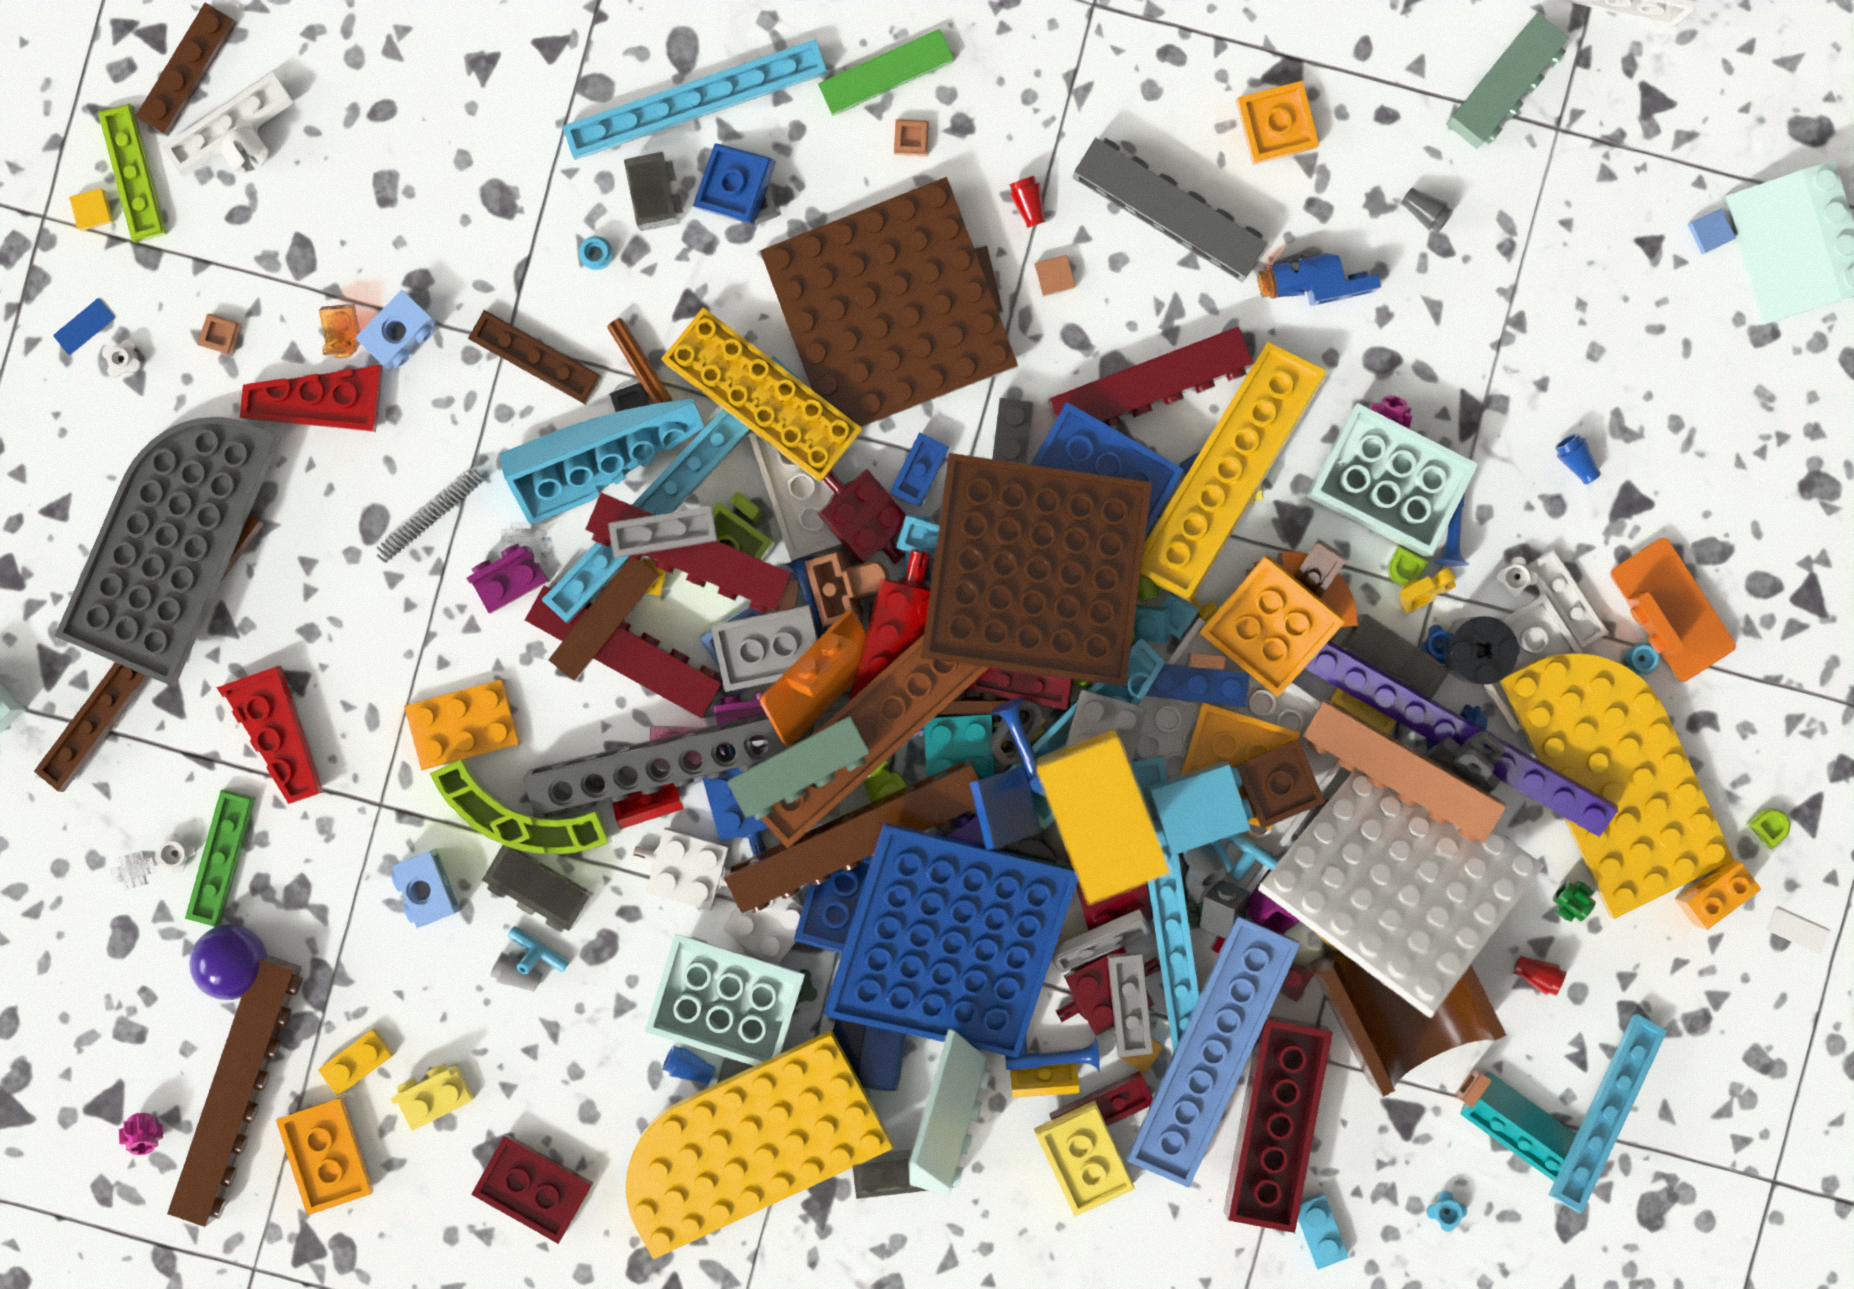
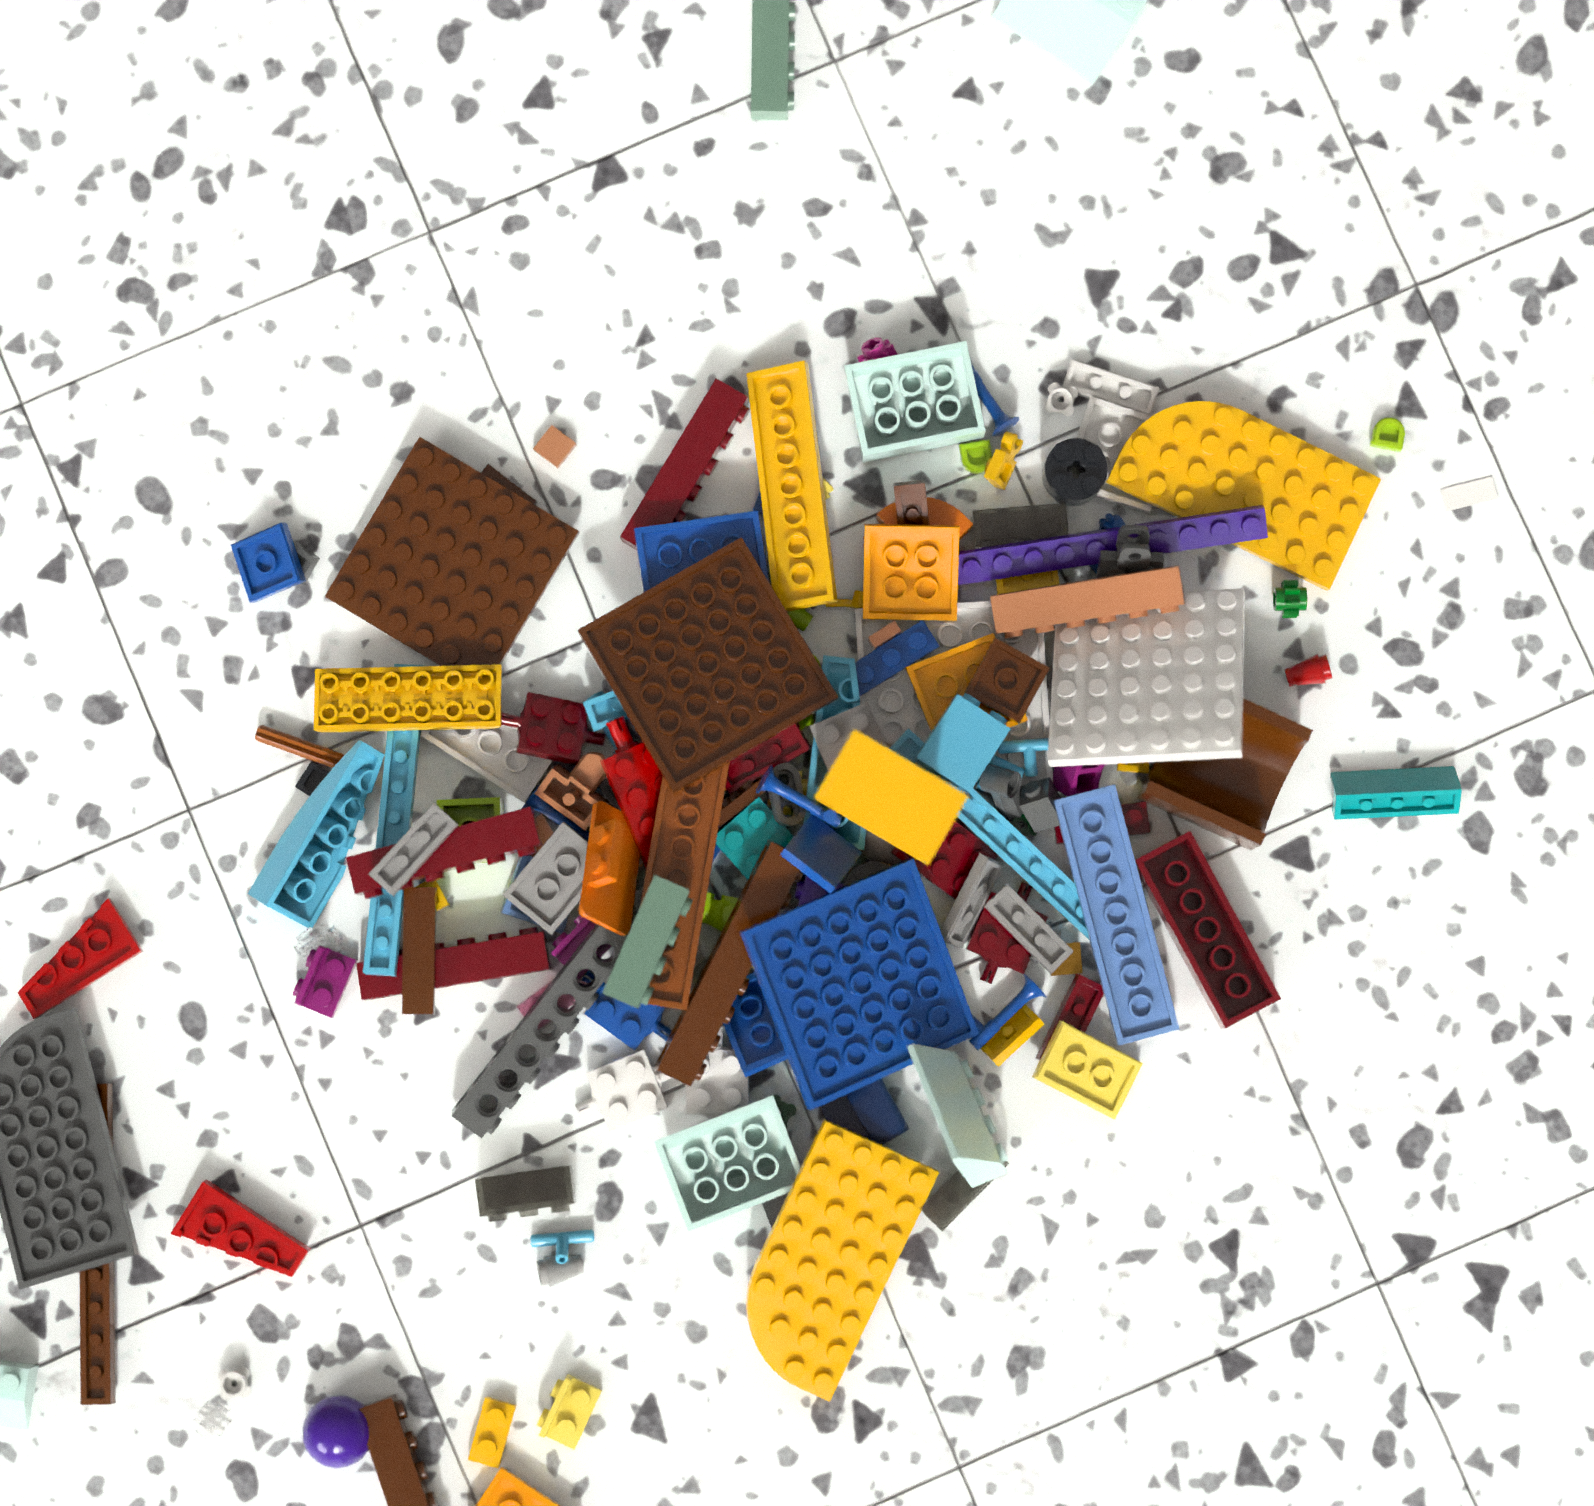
camera: 35 degrees left, 5 degrees down
(220, 858) = (271, 1360): bright green tile -> none
(339, 330) = (59, 896): clear orange bracket -> none
(378, 333) = (94, 846): light blue brick -> none
(442, 898) = (462, 1259): light blue brick -> none
(462, 724) = (375, 1116): light orange plate -> none
(464, 492) = (235, 960): light grey piece -> none
(510, 827) = (474, 1159): lime brick -> none
(532, 1188) = (697, 1421): dark red plate -> none
(534, 357) = (219, 803): reddish brown tile -> none
(586, 249) = (196, 688): medium azure plate -> none
(644, 807) = (558, 1068): red plate -> none
(652, 191) = (211, 615): clear smoke brick -> none
(687, 1065) = (739, 1236): blue cone -> none
(694, 99) = (191, 525): medium azure plate -> none
(746, 507) = (461, 789): lime tile -> none
(885, 72) = (316, 397): bright green tile -> none
(911, 137) = (371, 429): nougat tile -> none
(919, 470) = (566, 663): blue plate -> none
(1012, 430) = (611, 580): dark grey plate -> none
(1028, 200) = (492, 407): red cone -> none
(1151, 624) = (824, 640): medium azure plate -> none
(1170, 209) = (599, 334): dark grey brick -> none
(1180, 614) = (837, 620): medium azure plate -> none
(1277, 122) = (629, 212): light orange plate -> none
(1317, 275) = (744, 298): blue plate -> none
(1321, 1231) = (1303, 986): medium azure plate -> none
(1429, 210) = (788, 189): dark grey cone -> none
(1429, 646) = (1037, 487): blue plate -> none
(1449, 1220) = (1375, 904): medium azure plate -> none
(1473, 1087) = (1327, 792): nougat tile -> none
(1577, 456) = (1036, 281): blue cone -> none
(1607, 1113) = (1437, 732): medium azure plate -> none
(1650, 658) = (1198, 379): medium azure plate -> none
(1672, 610) = (1192, 336): orange bracket -> none
(1711, 231) = (1002, 47): medium blue tile -> none
(1718, 894) = (1388, 512): light orange brick -> none

